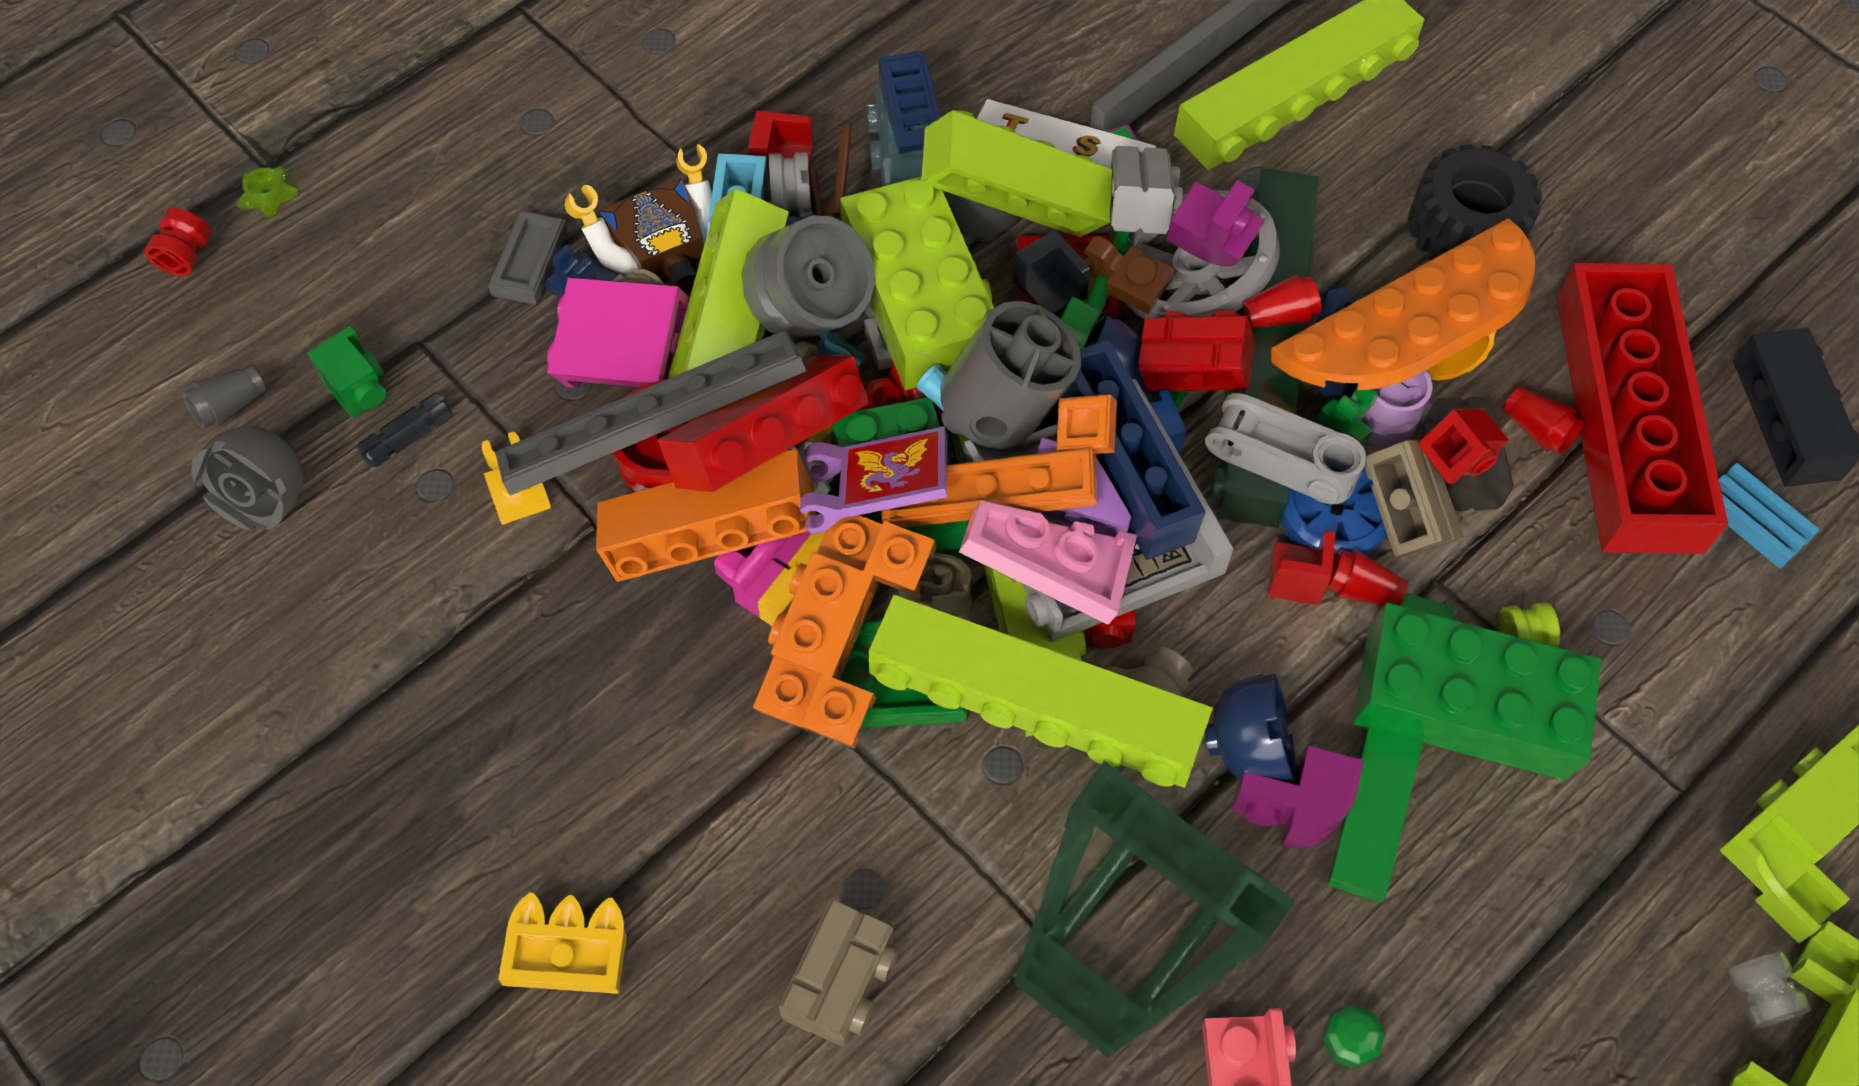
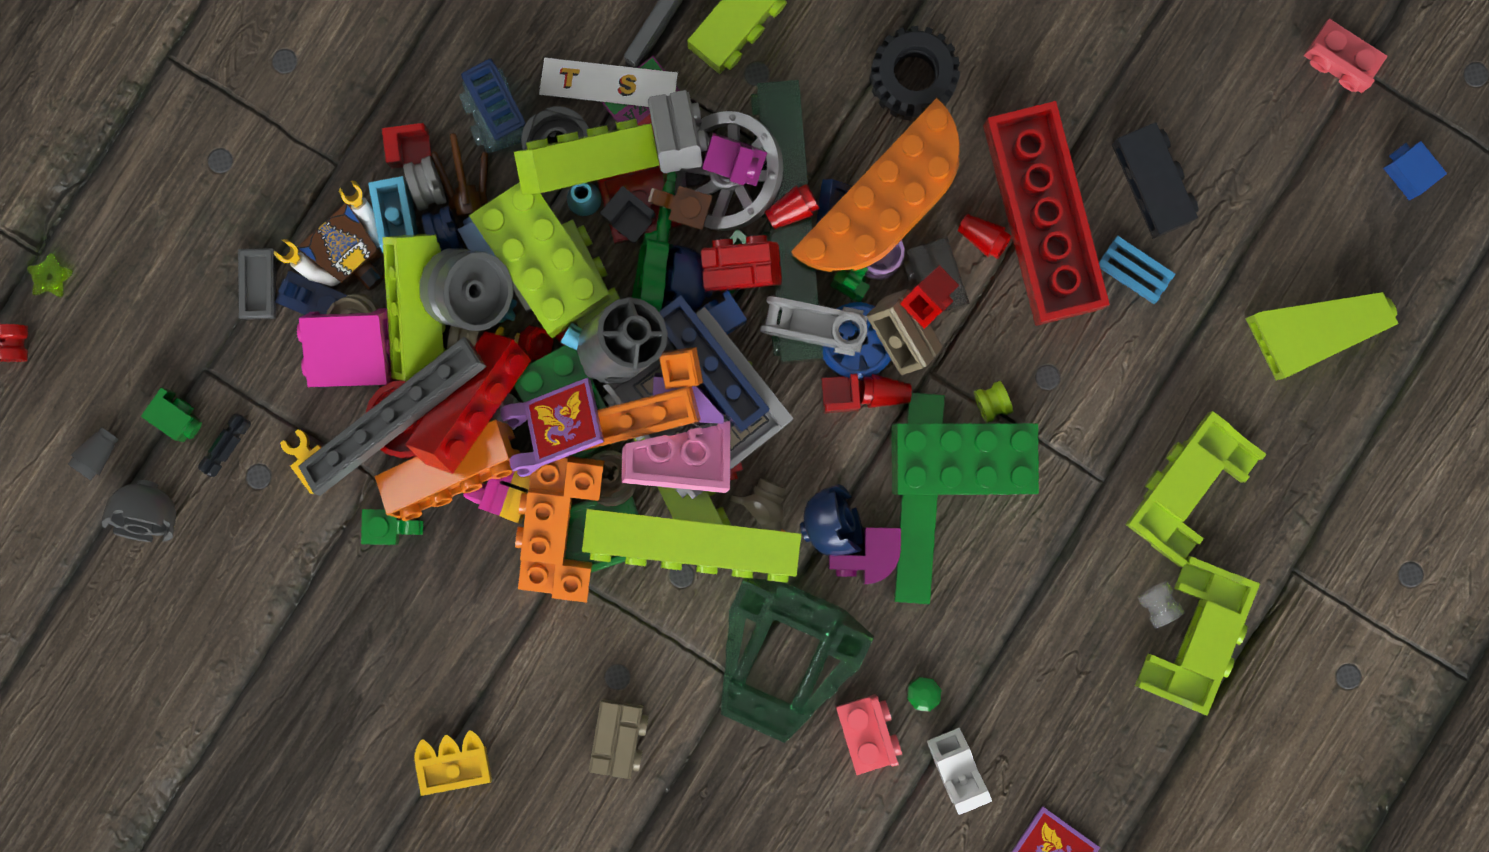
camera: 15 degrees left, 25 degrees up
(587, 584) = (384, 529): none -> green plate
(995, 248) = (587, 205): none -> medium azure cone

